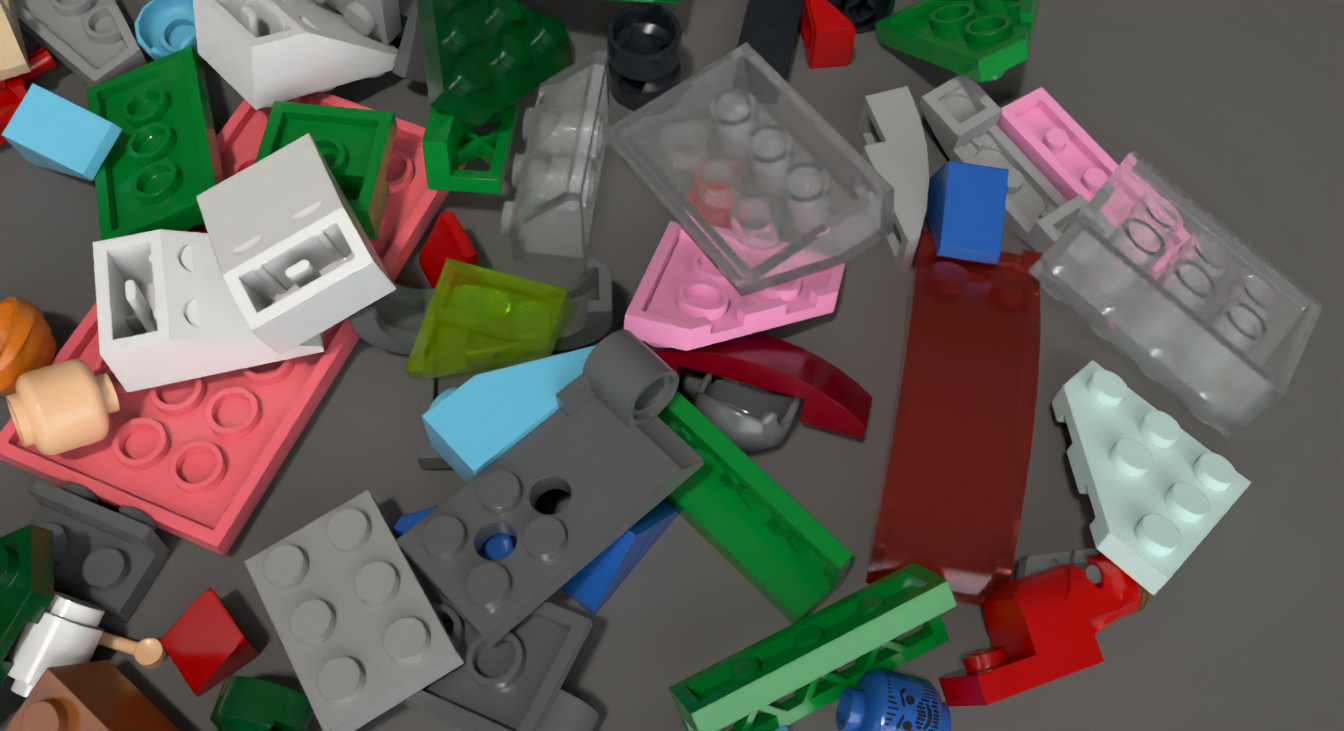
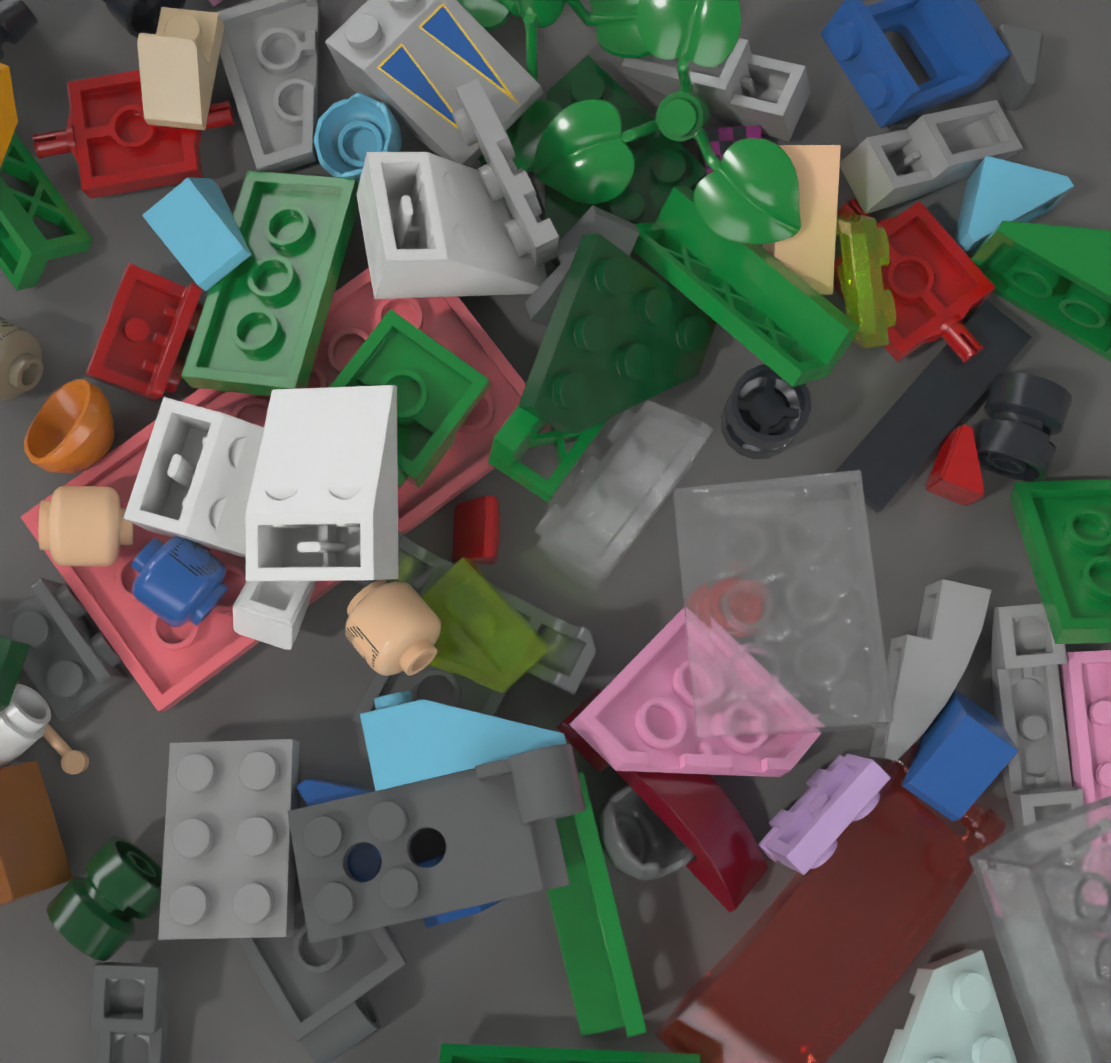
camera: 30 degrees right, 20 degrees up
(48, 247) = (145, 334): none -> red bracket
(181, 408) = (178, 580): none -> blue head
(207, 643) = (120, 783): red slope -> none
(287, 397) = (272, 610): none -> white slope
(413, 333) = (392, 628): none -> light nougat head
(885, 306) = (835, 797): none -> lavender plate

